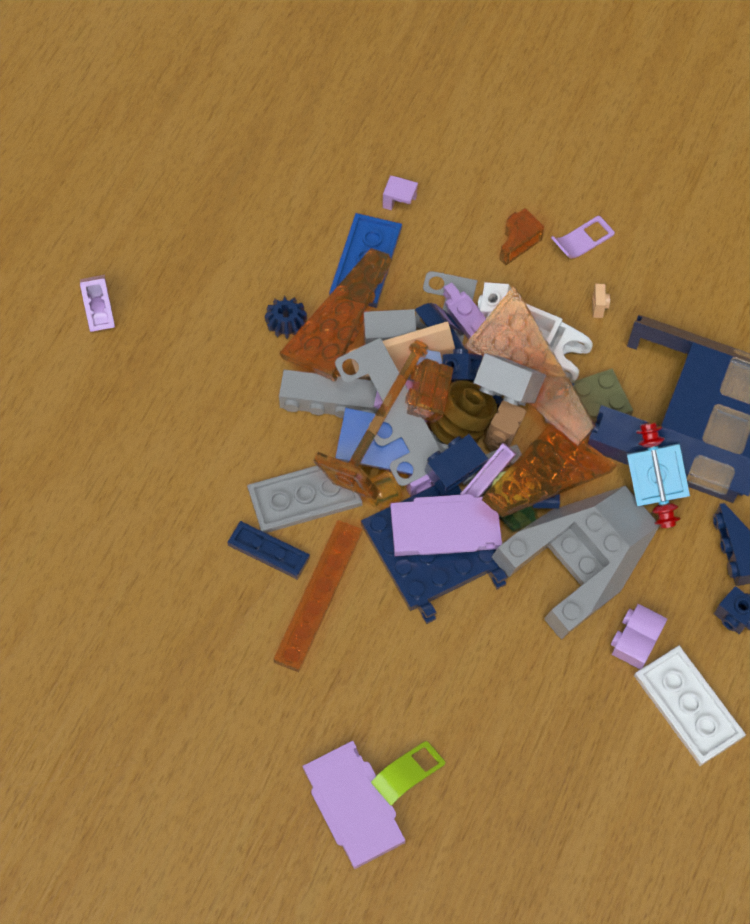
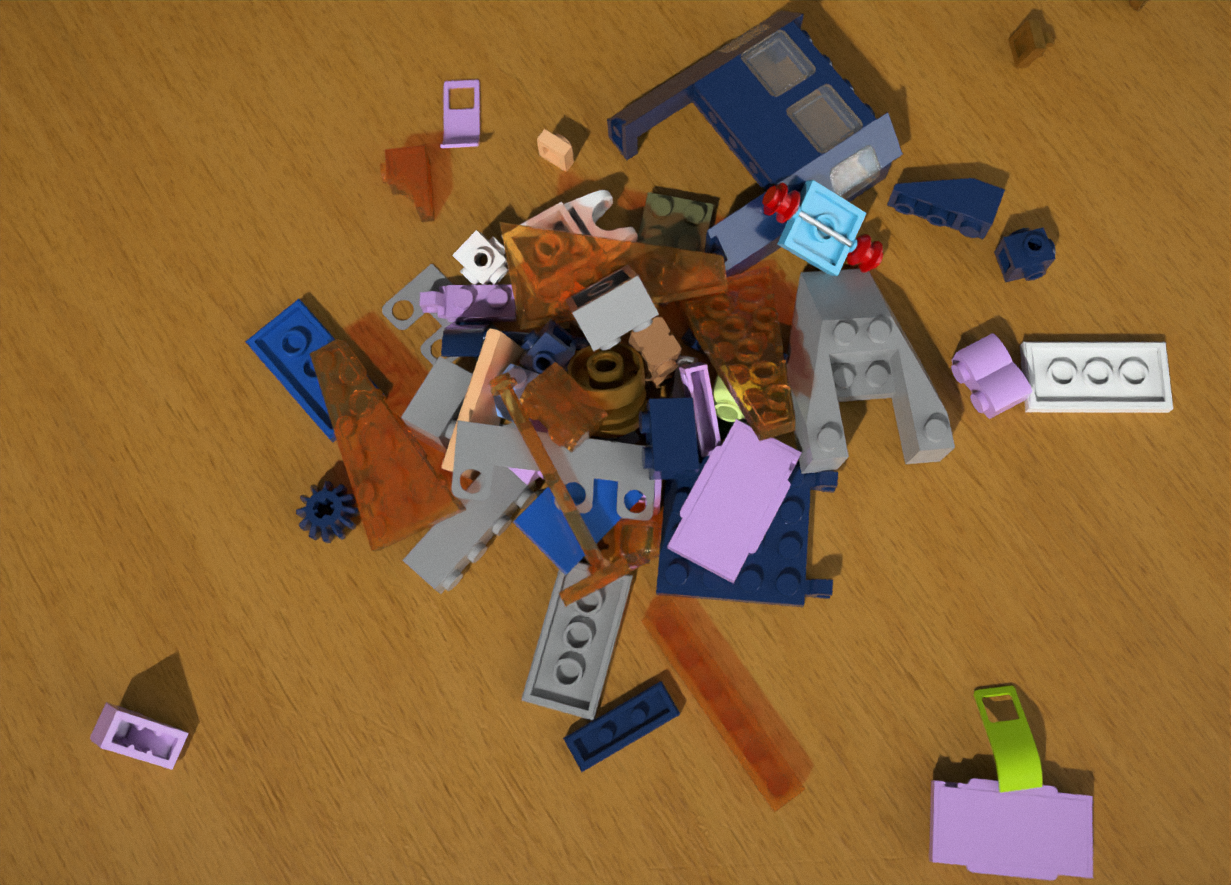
camera: 50 degrees left, 10 degrees up
(399, 190) = (256, 272): lavender panel -> none

